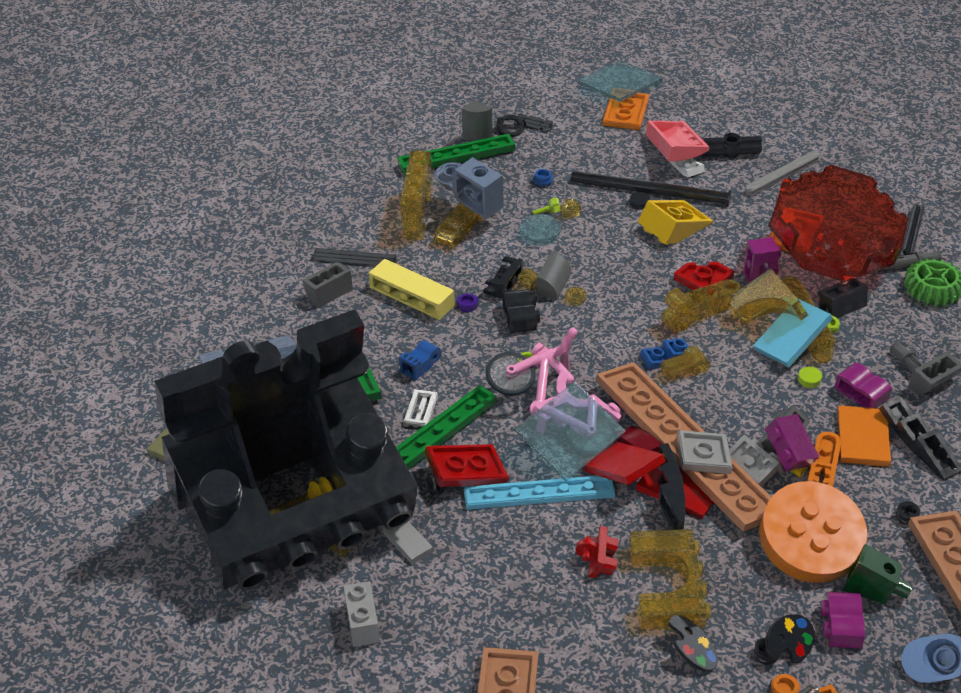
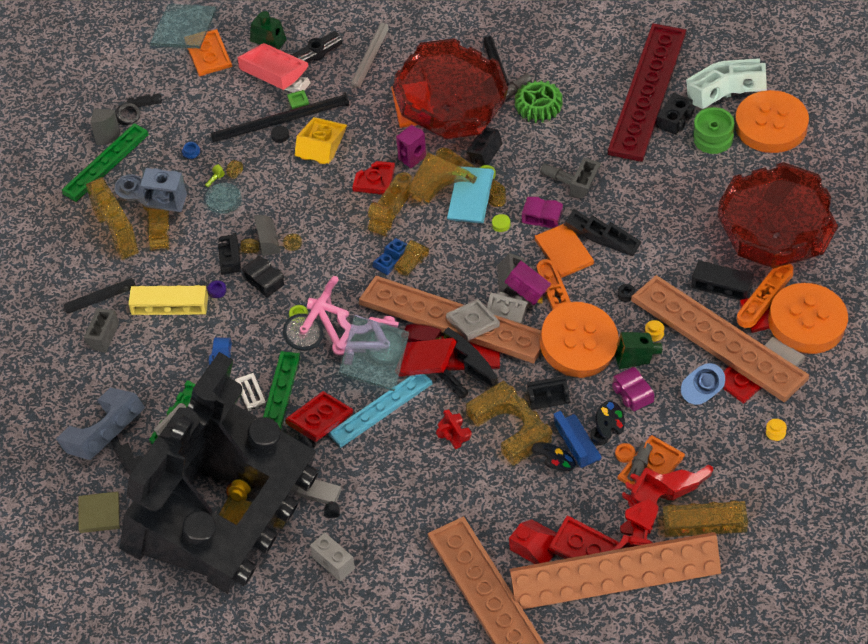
camera: 30 degrees left, 10 degrees up
(403, 565) = (331, 510): none -> black hinge
(637, 507) = (453, 383): none -> black axle
(680, 178) = (297, 99): none -> bright green plate
(693, 110) = (267, 30): none -> dark green torso
(736, 641) = (576, 439): none -> blue panel
(737, 571) = (548, 392): none -> black hinge
(915, 569) = (655, 329): none -> yellow wheel

